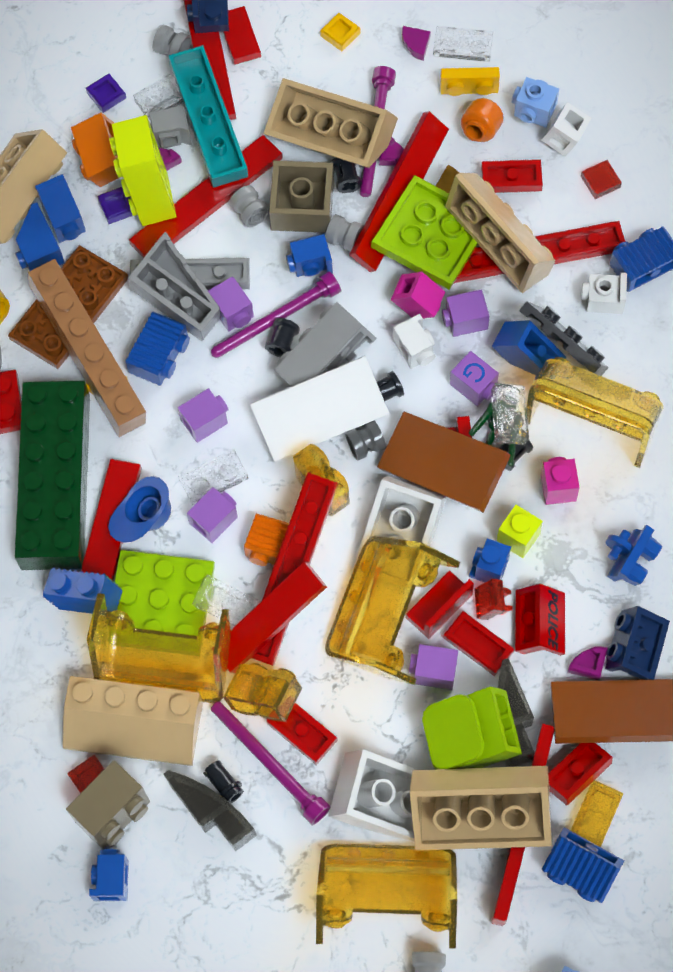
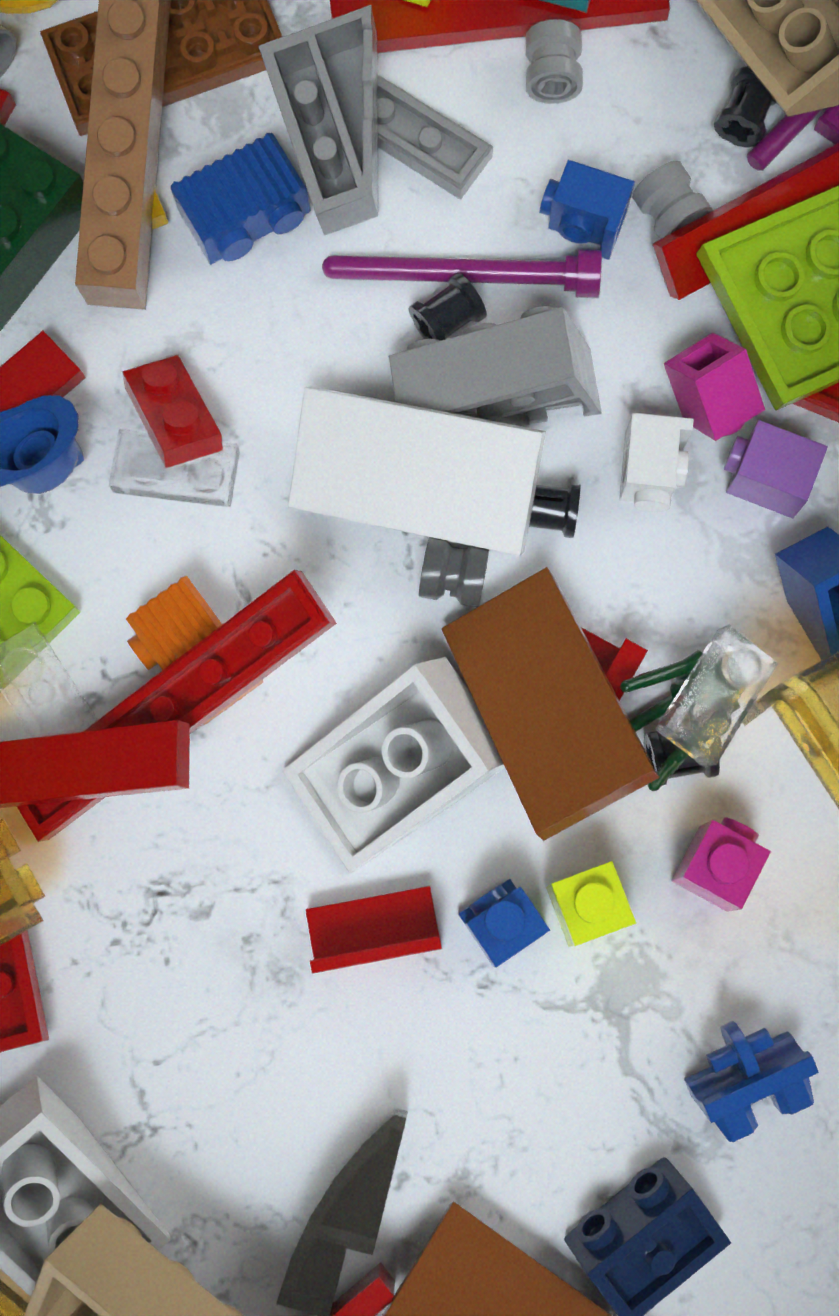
camera: 35 degrees right, 10 degrees up
(196, 453) = (172, 411): none -> red plate
(203, 414) = (232, 355): medium lavender brick -> none
(213, 514) = (127, 528): medium lavender brick -> none
(234, 304) = (406, 202): medium lavender brick -> none
(301, 196) = (645, 94): dark tan brick -> none
(315, 461) = (334, 567): clear yellow brick -> none
(378, 602) = (253, 873): clear yellow windscreen -> none
(434, 666) = (282, 1034): medium lavender brick -> none
(471, 730) = (246, 1208): lime brick -> none
(474, 378) = (706, 589): medium lavender brick -> none
(478, 643) = (389, 1042): red tile -> none
(490, 599) = (459, 986): clear red tile -> none
(540, 620) = (514, 1080): red panel -> none
(589, 663) = (545, 1209): magenta tile -> none

